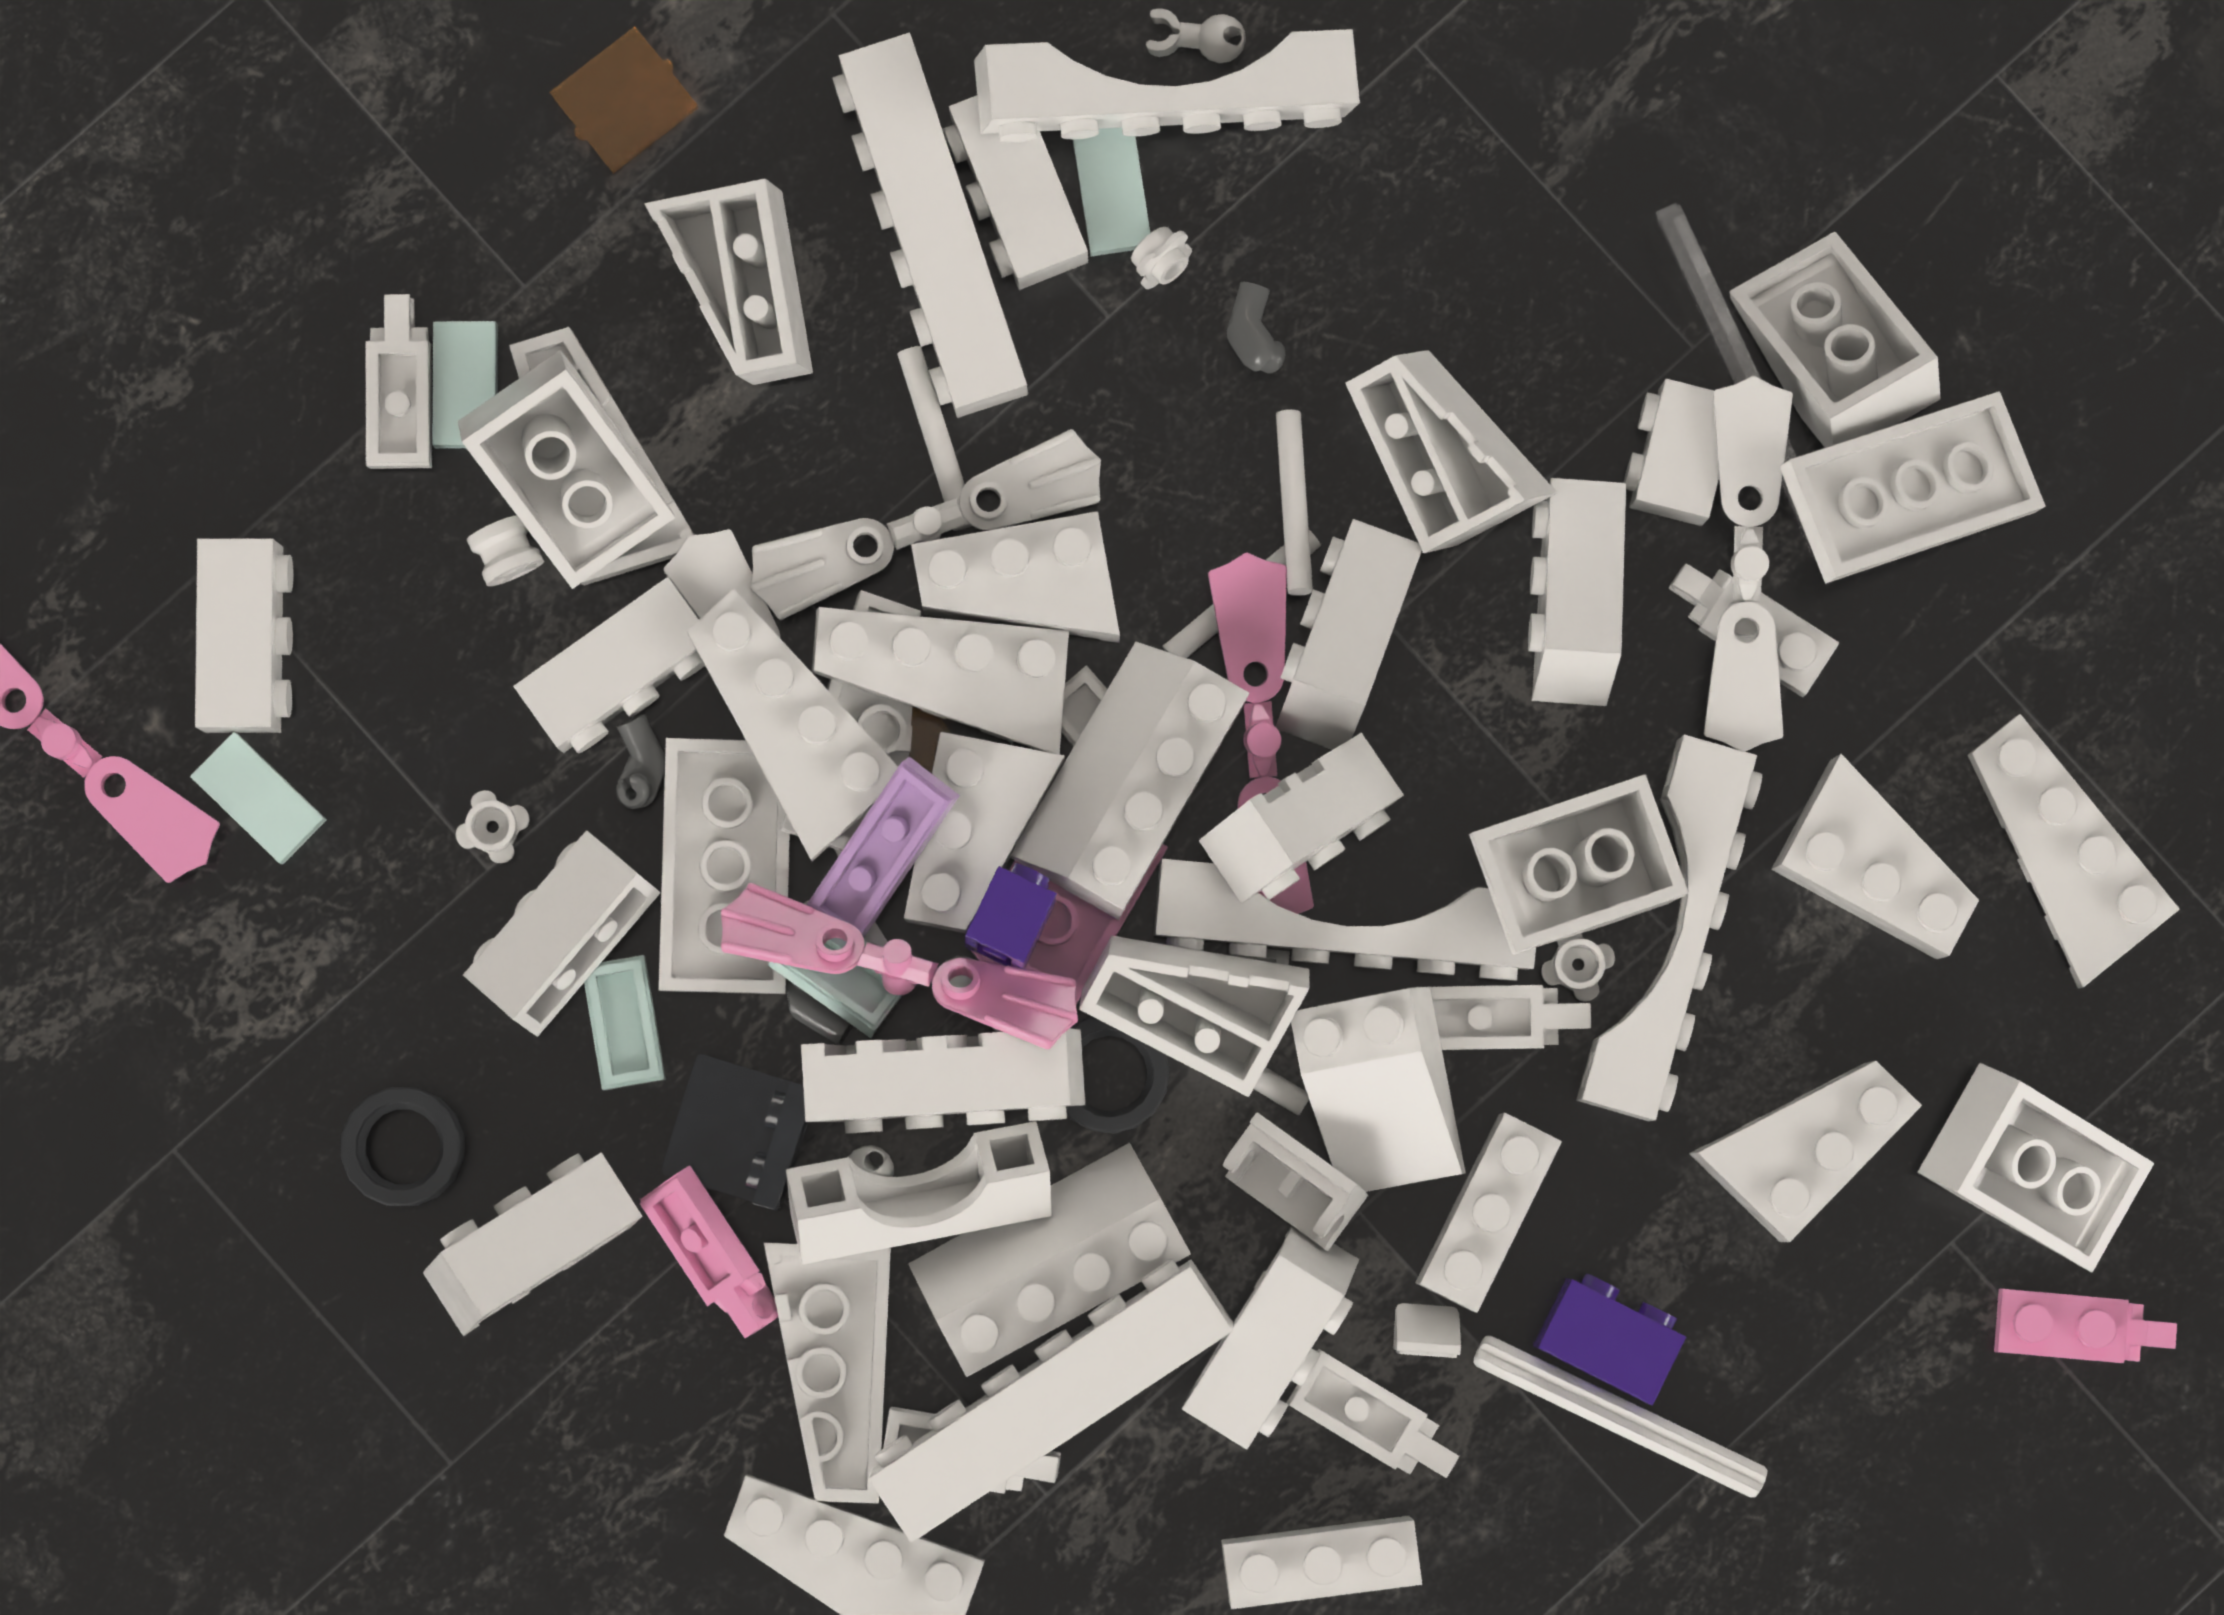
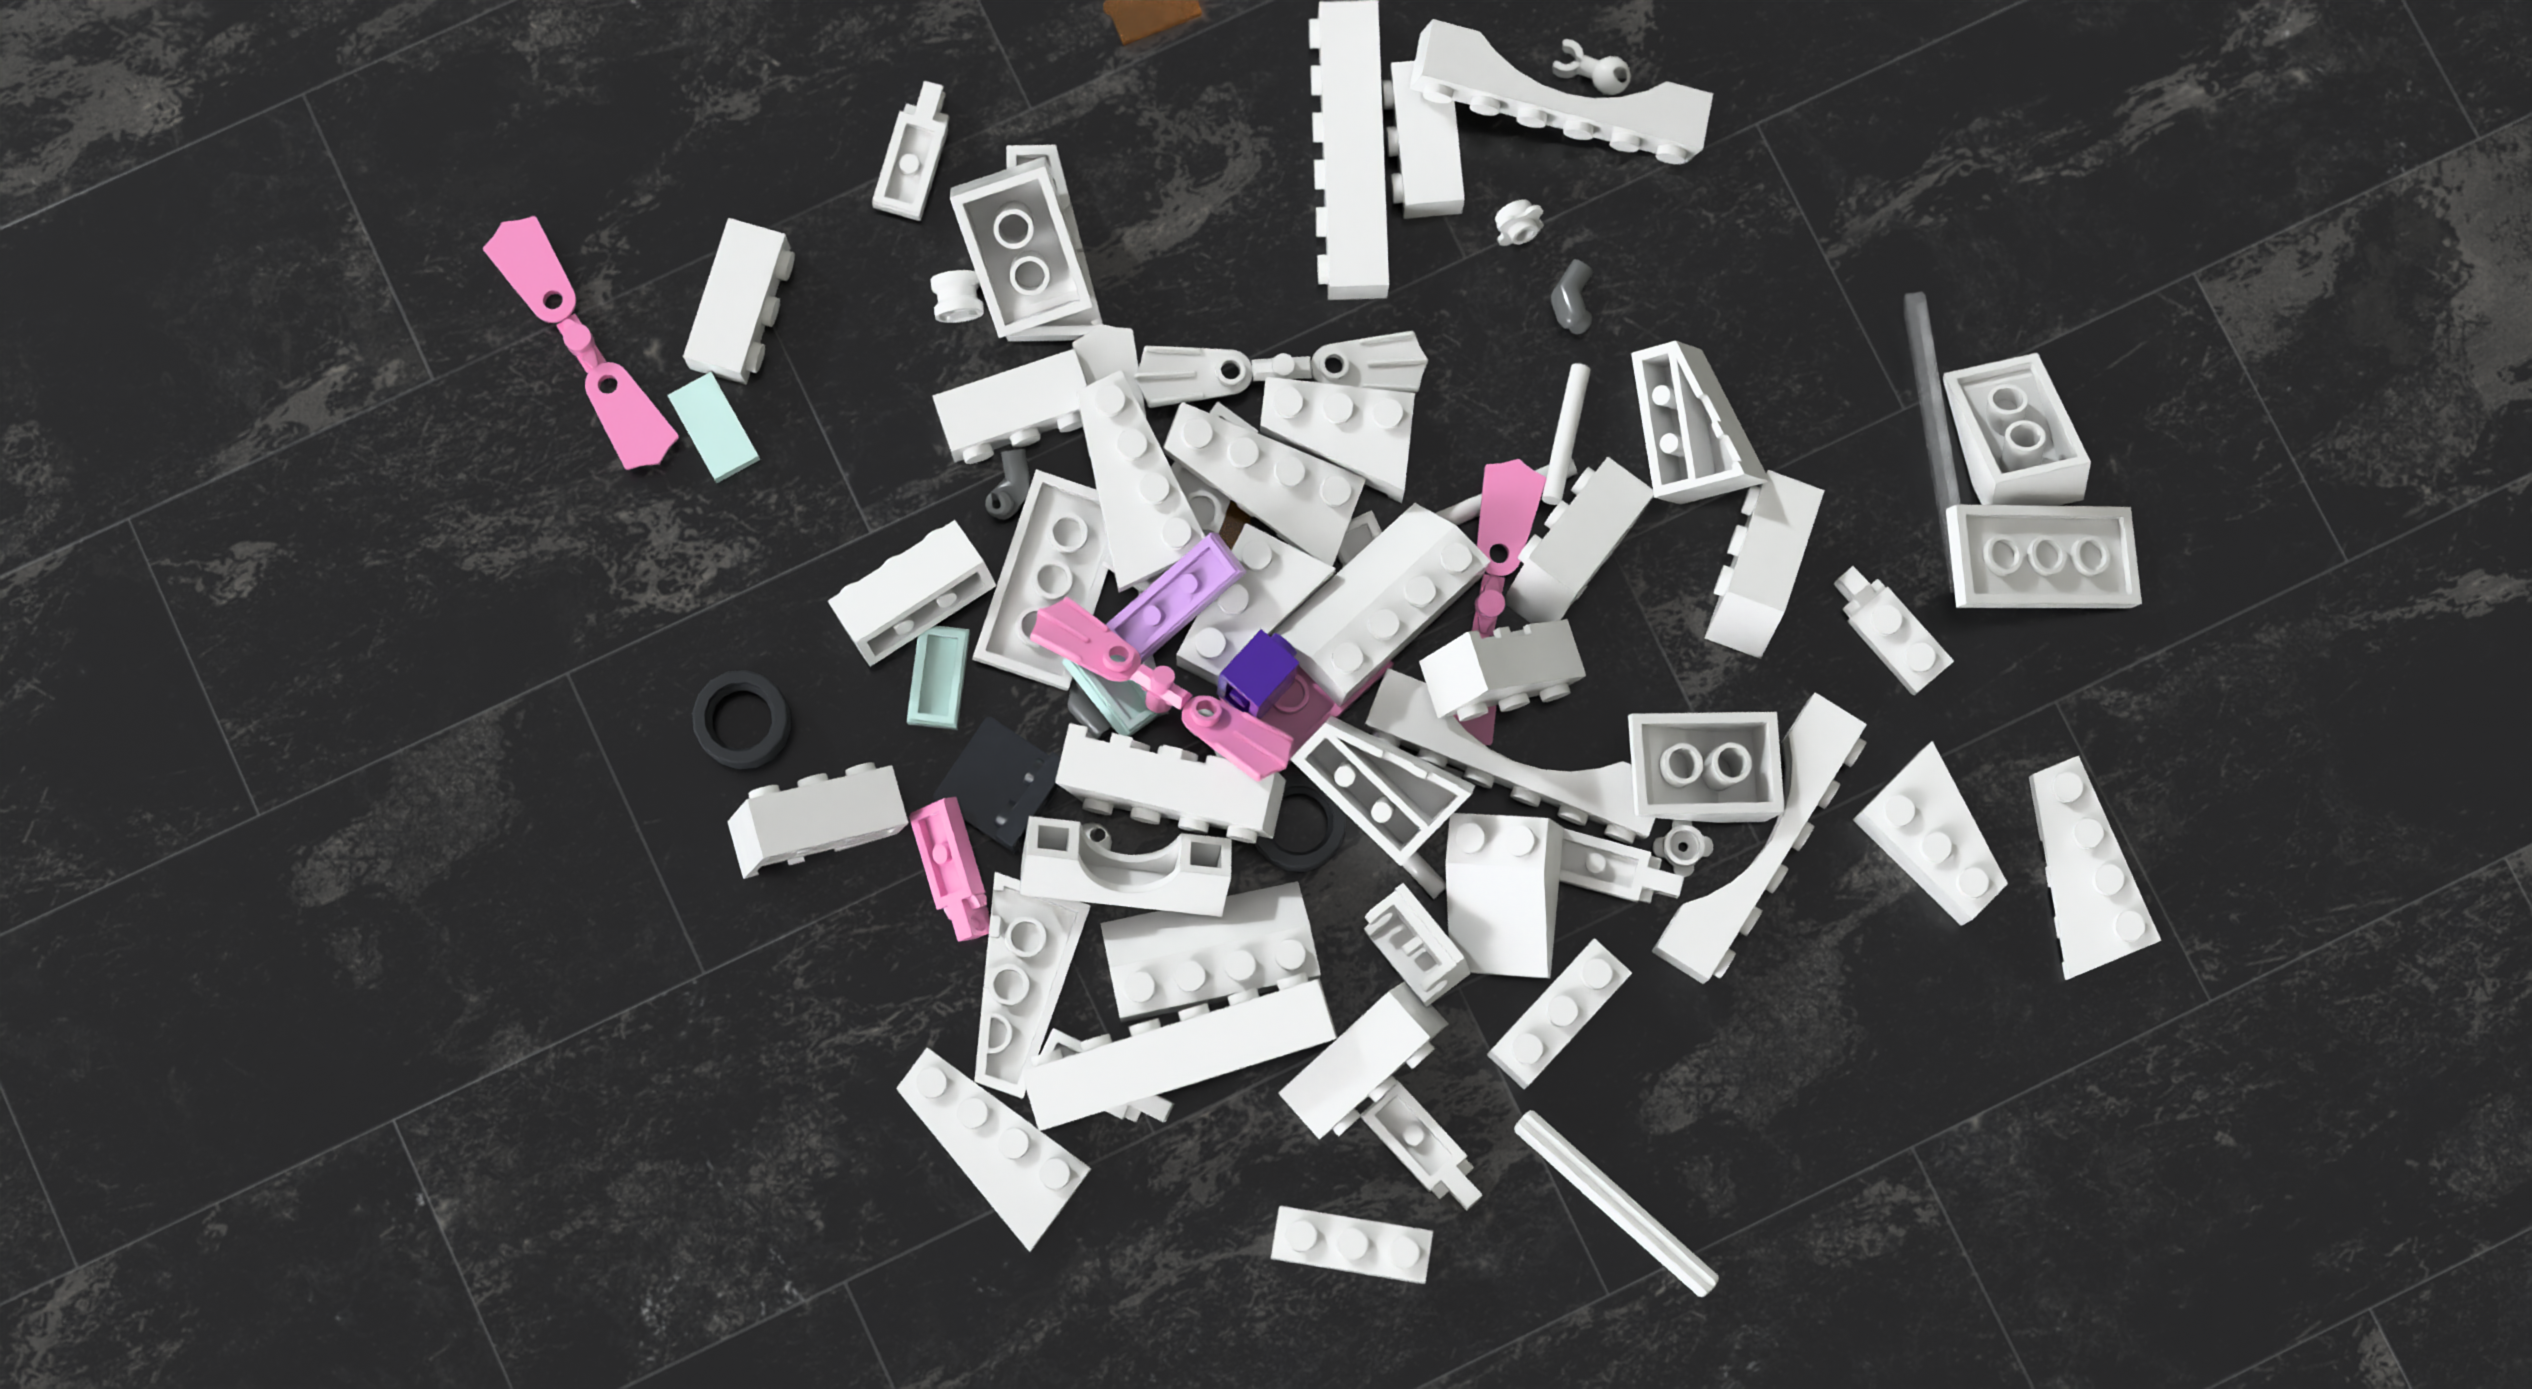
camera: 15 degrees right, 5 degrees down
(462, 375) = (964, 158): light aqua tile -> none
(487, 809) = (881, 486): white plate -> none
(743, 273) = (1198, 141): white wedge -> none
(932, 424) = (1308, 297): white bar -> none
(1111, 191) = (1495, 163): light aqua tile -> none
(1427, 1330) = (1485, 1093): white slope -> none
(1610, 1339) = (1626, 1140): dark purple brick -> none
(1679, 459) = (1873, 482): white brick -> none
(1745, 676) = (1874, 663): white piece -> none
(1808, 1149) = (1819, 1037): white wedge -> none
(2036, 1166) = (1994, 1105): white slope -> none
(2076, 1327) = (1991, 1240): bright pink hinge -> none

